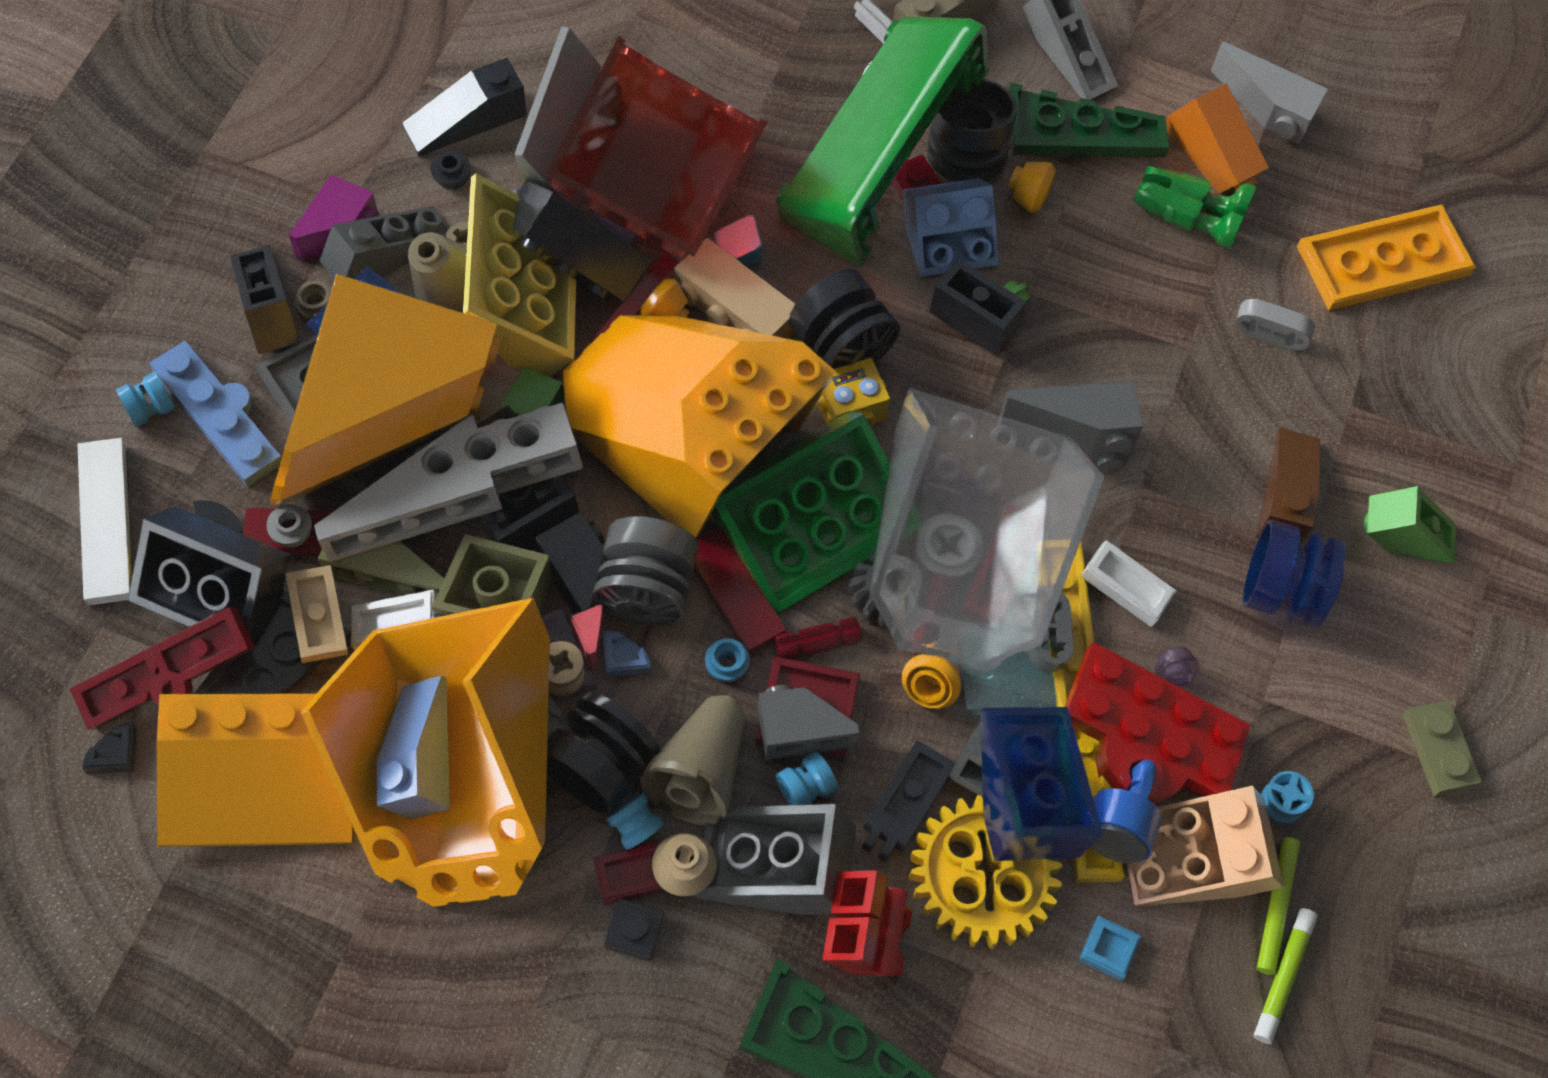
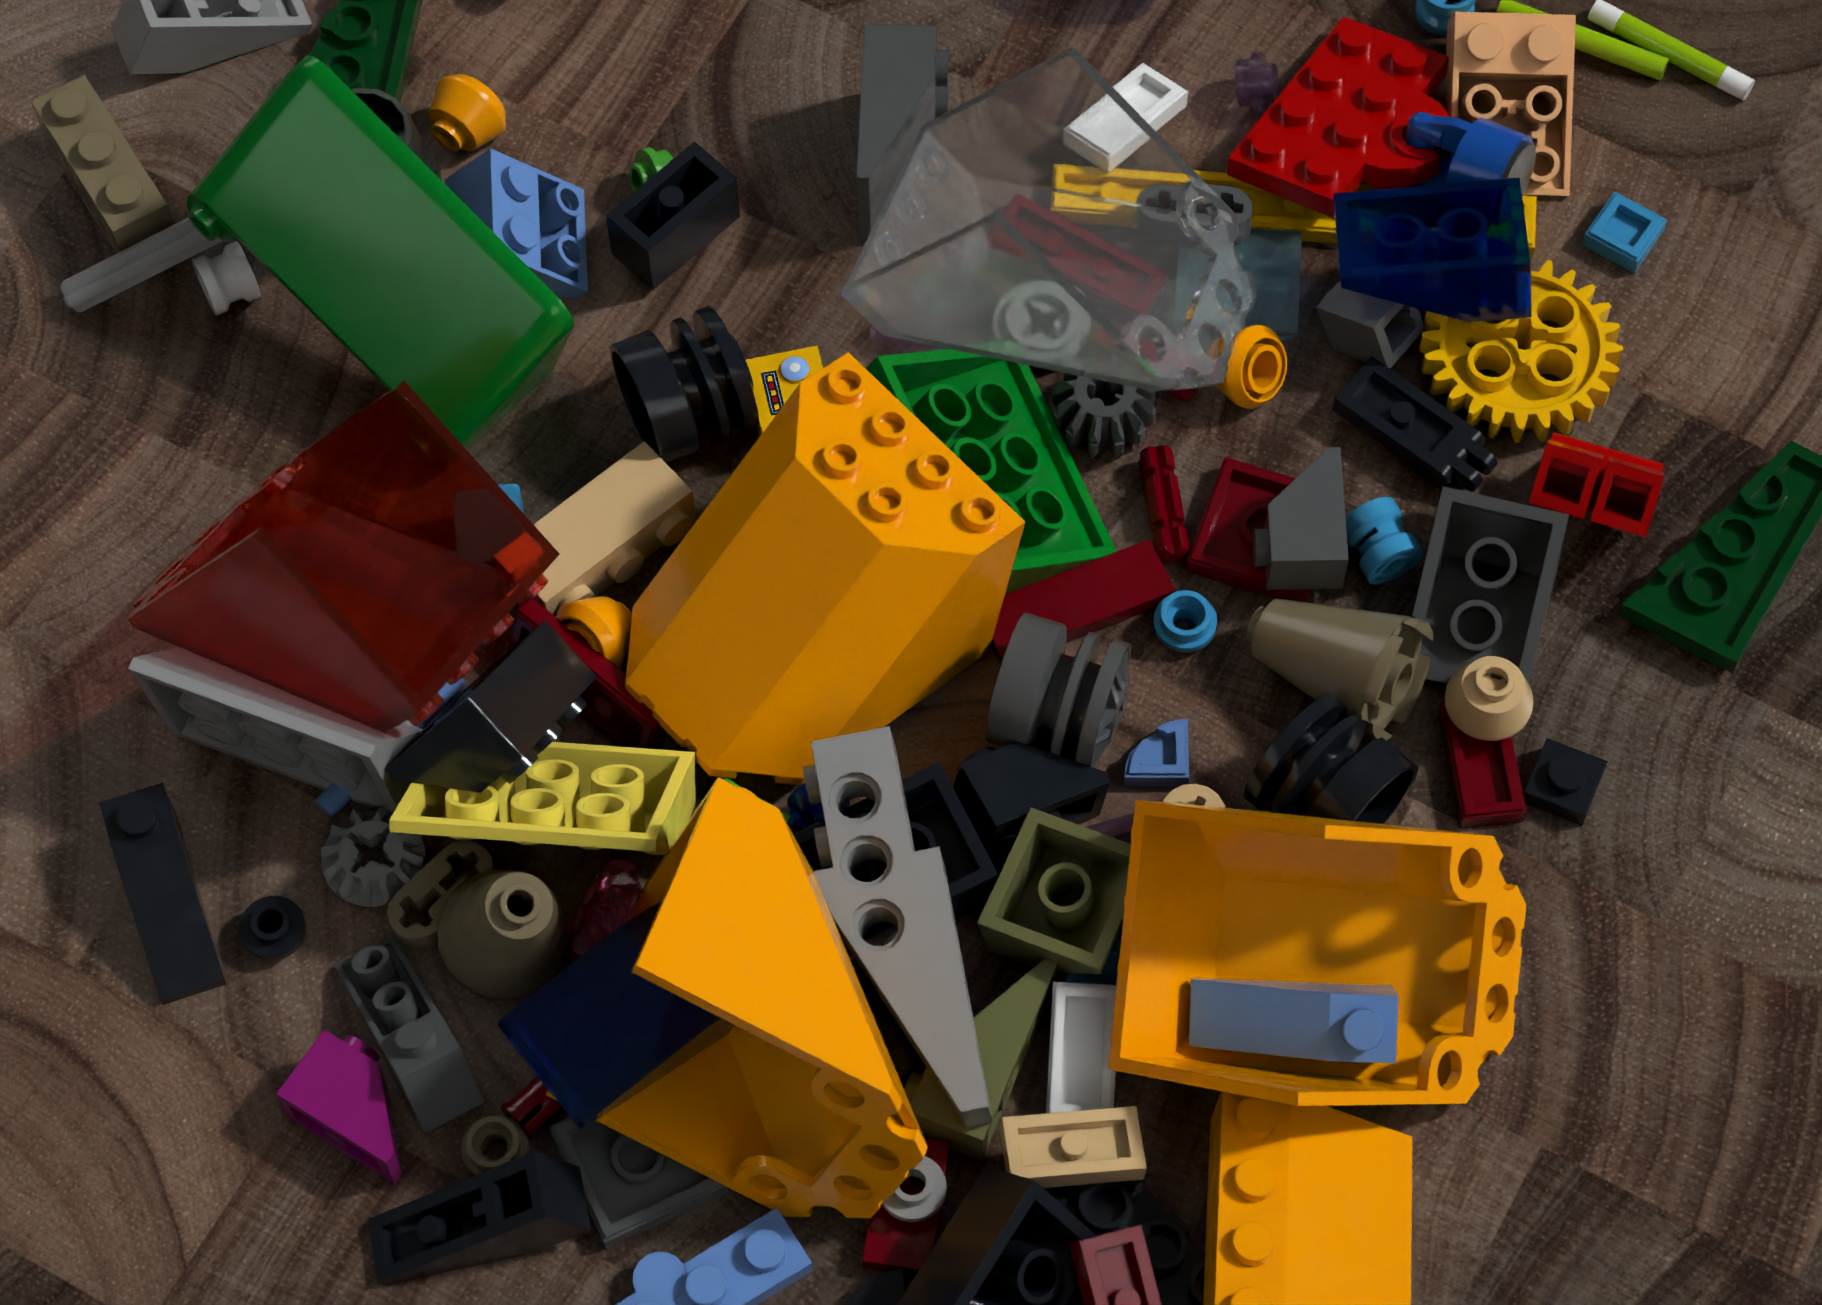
camera: 75 degrees left, 0 degrees up
(588, 629) = (1135, 782): coral slope -> none
(634, 820) = (1432, 748): dark azure wheel -> none

